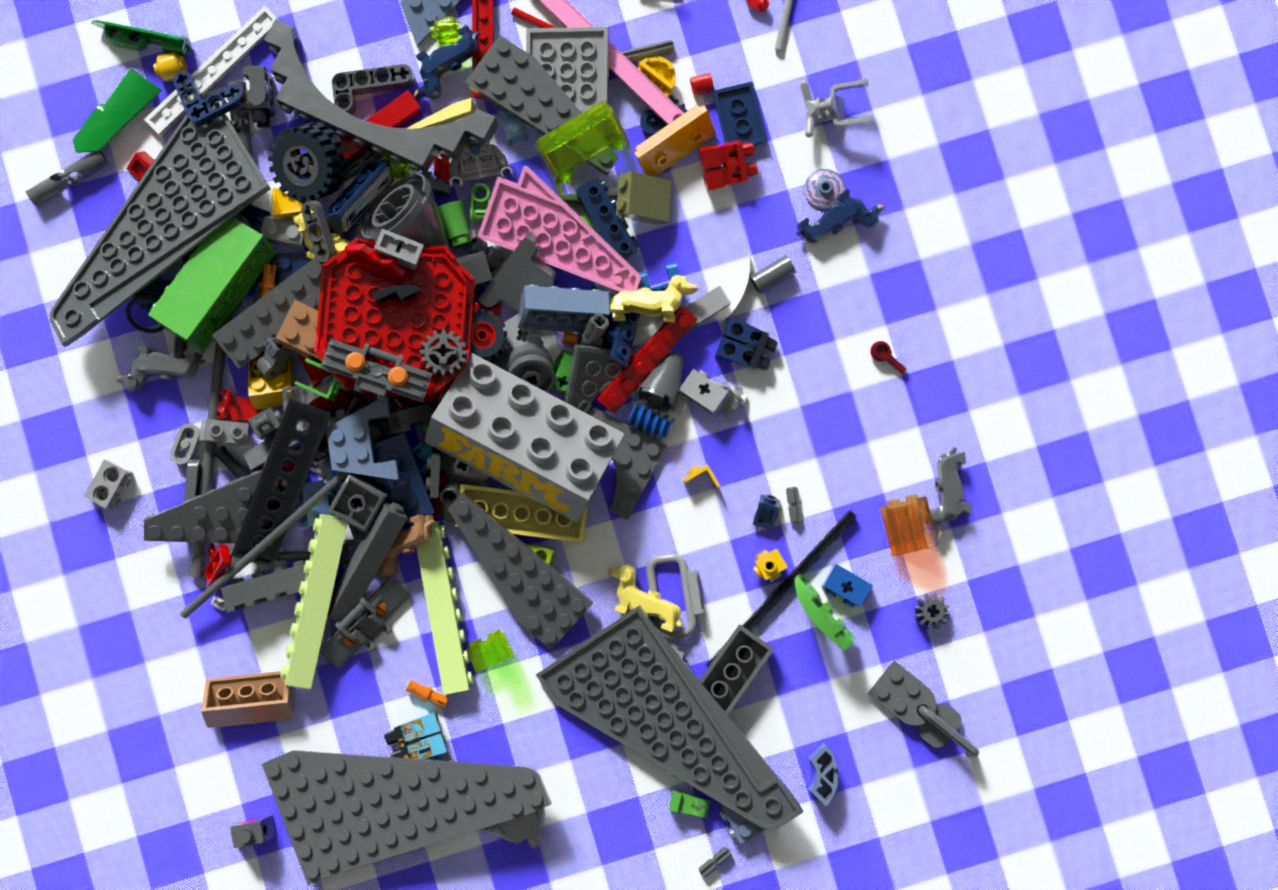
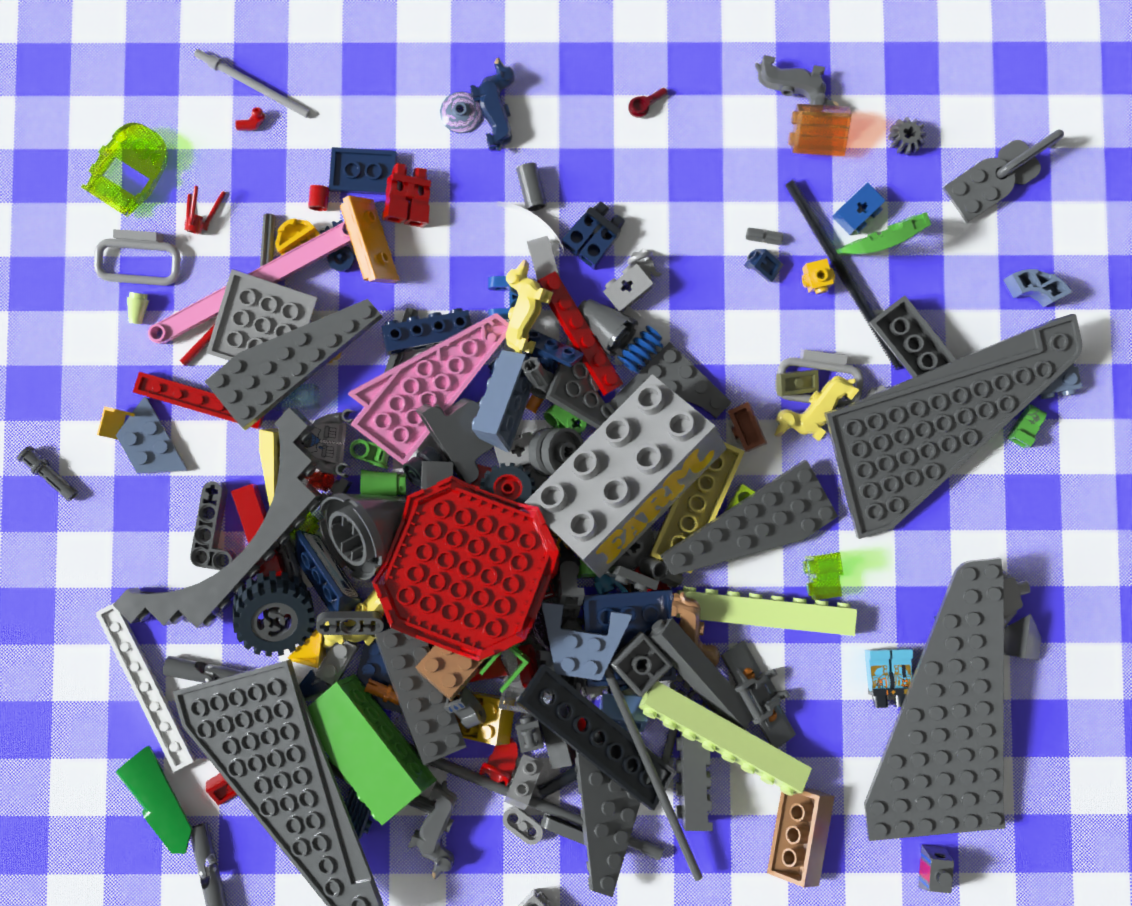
camera: 70 degrees left, 0 degrees up
(128, 314) = (378, 845): black piece -> none
(168, 41) = (102, 721): green panel -> none
(168, 65) = (127, 728): yellow head -> none
(200, 105) = (176, 709): dark blue beam -> none
(218, 564) = (657, 826): red plate -> none
(218, 602) = (694, 837): white rock -> none
(260, 95) = (187, 644): dark grey hips -> none
(366, 257) = (396, 578): red tile -> none
(373, 377) = (524, 607): dark grey piece -> none
(402, 293) = (444, 553): black slope -> none
(403, 250) = (398, 542): light grey brick -> none
(427, 694) = (846, 653): orange pin -> none
(434, 352) = (517, 538): dark grey gear -> none
(443, 60) = (211, 445): dark blue animal -> none
(445, 30) = (181, 435): clear neon green head -> none
(485, 853) = (1022, 639): none -> dark grey slope
(579, 141) = (341, 331): clear neon green windscreen -> none
(607, 540) = (747, 427): none -> copper brick
(643, 198) = (416, 287): olive brick -> none
(664, 574) = (797, 382): none -> olive plate
(697, 471) = (704, 320): yellow bracket -> none
(711, 864) = (1092, 423): dark grey piece -> none
(831, 108) = (383, 79): light grey piece -> none

